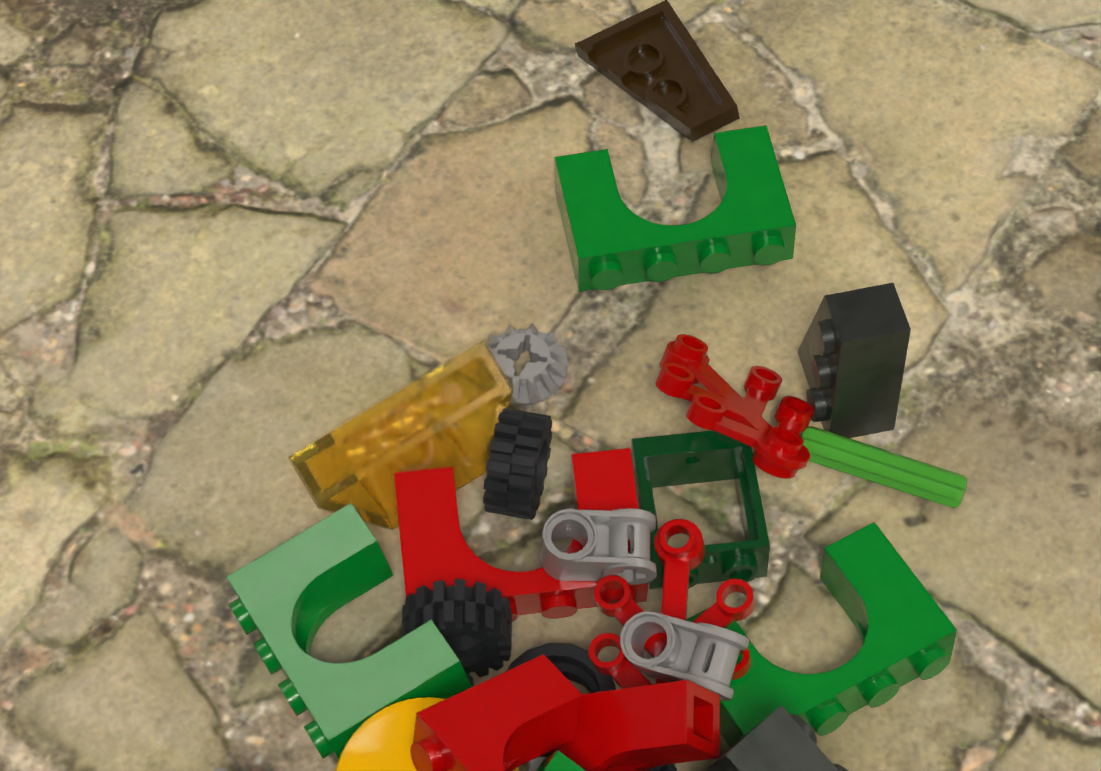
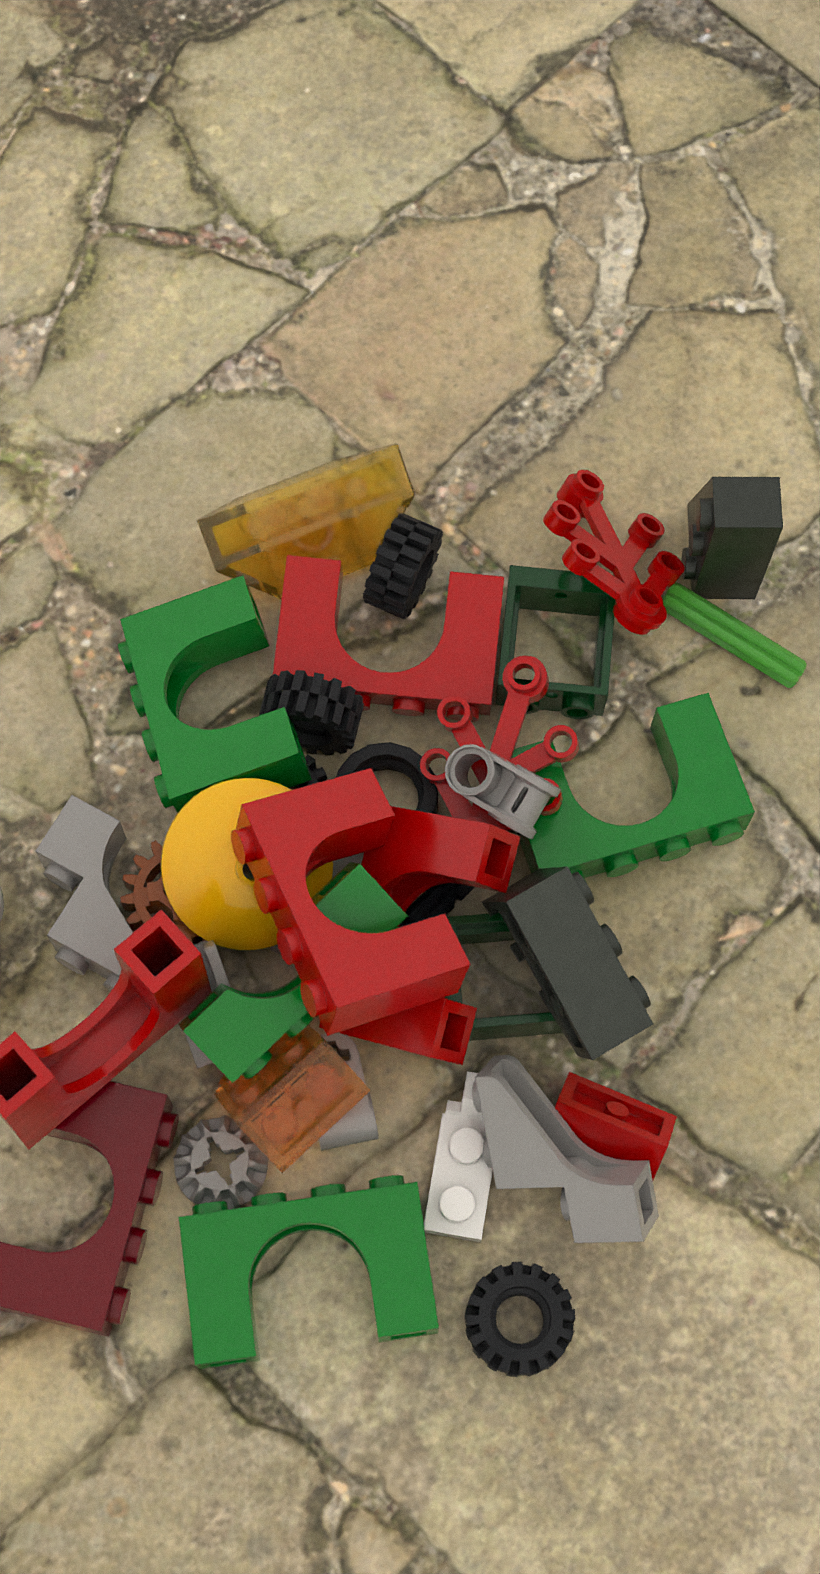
camera: 10 degrees right, 15 degrees up
(541, 375) = (443, 483): light grey gear -> none
(604, 545) = (457, 666): light grey piece -> none
(620, 248) = (549, 371): green arch -> none
(662, 69) = (634, 196): dark brown wing -> none

